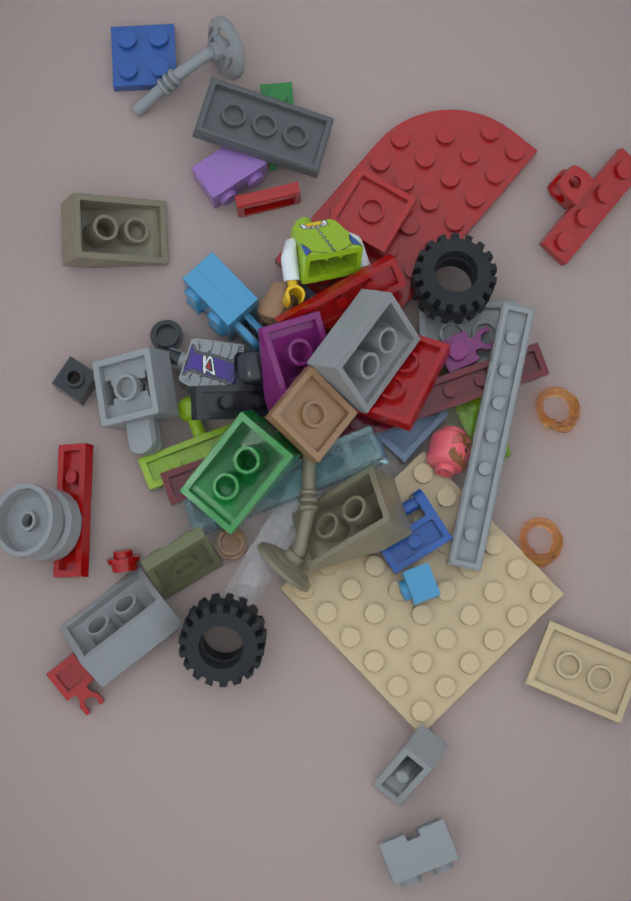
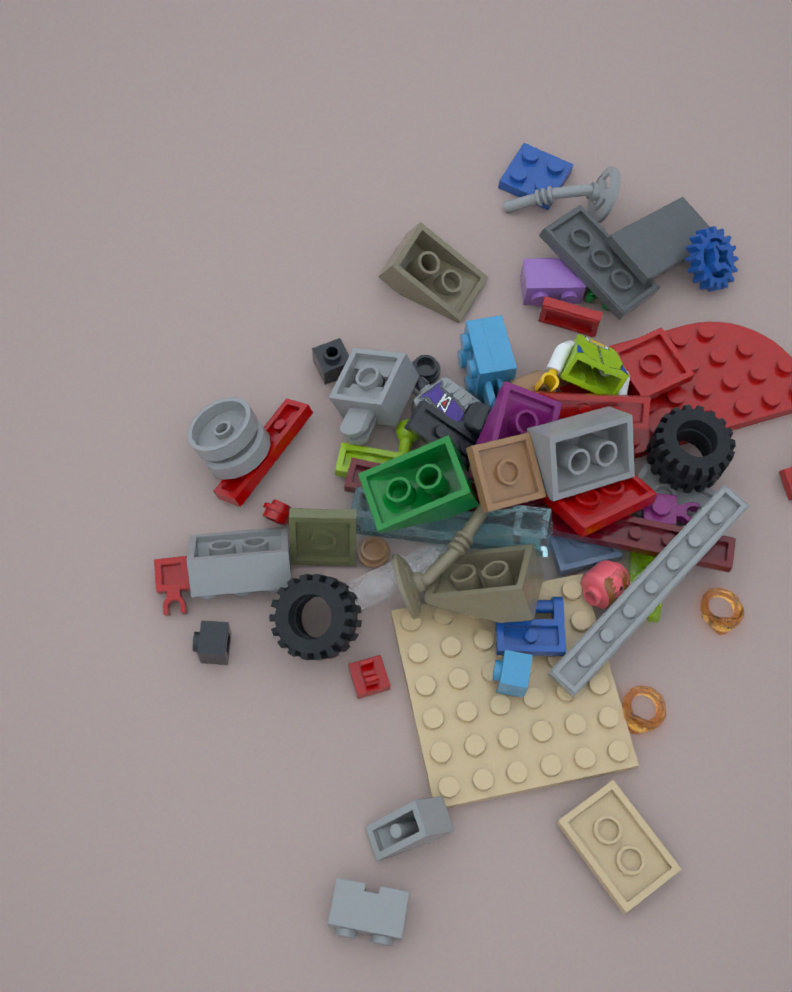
camera: 30 degrees right, 15 degrees down
(146, 714) = (213, 642): none -> black plate
(297, 657) = (369, 676): none -> red tile
(308, 64) = (657, 240): none -> dark grey tile
(365, 58) = (711, 259): none -> blue gear

